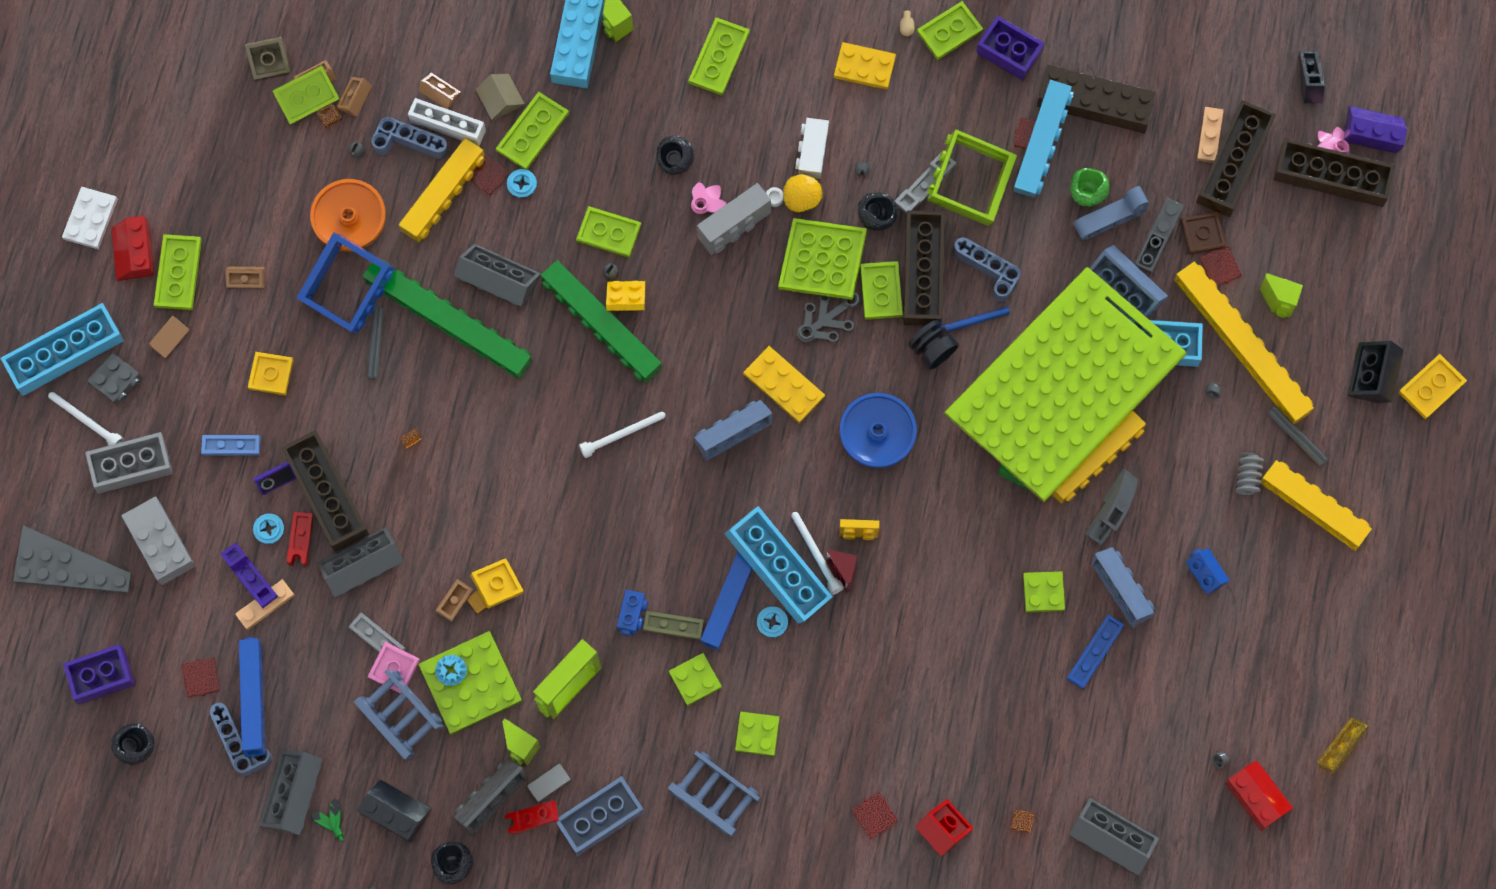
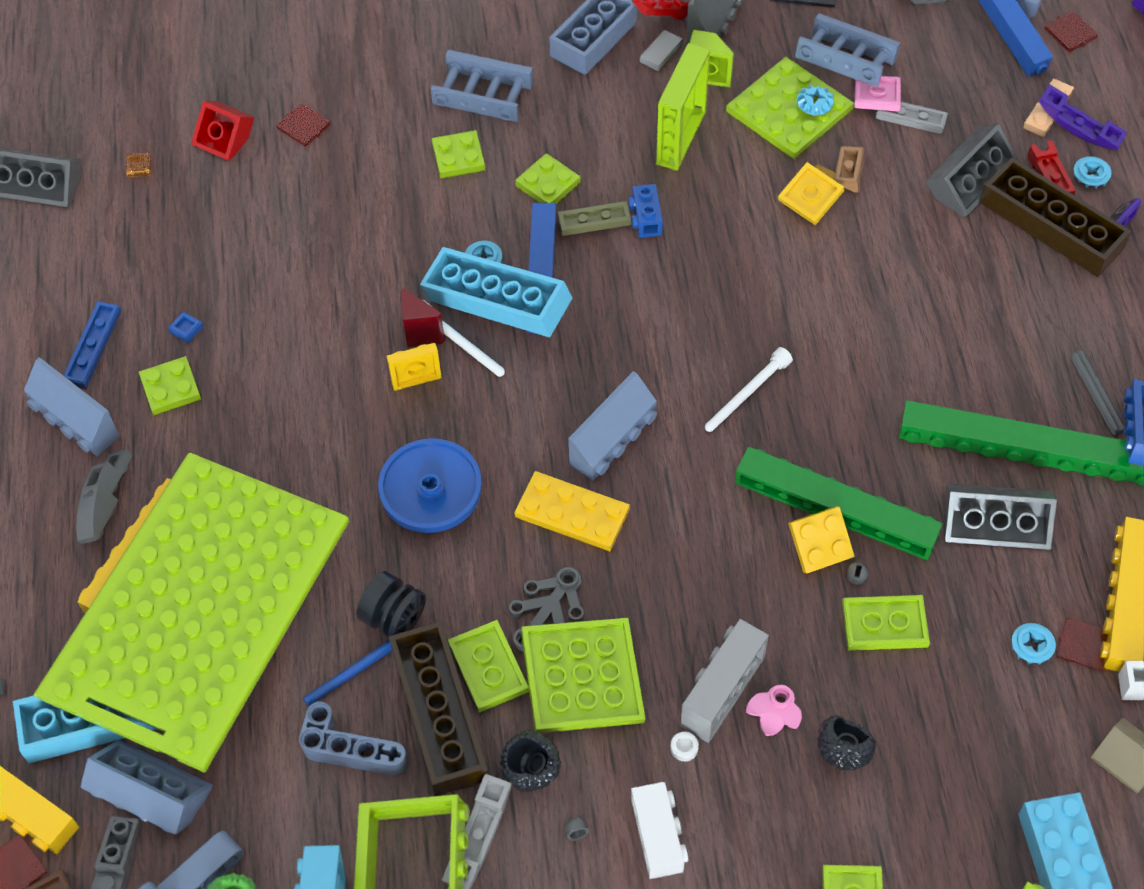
camera: 160 degrees right, 15 degrees down
(410, 438) = (992, 302): clear orange tile -> none
(532, 131) = (1059, 718): lime plate -> none
(802, 193) = (646, 754): yellow hair -> none
(1020, 641) = (185, 327): none -> blue tile

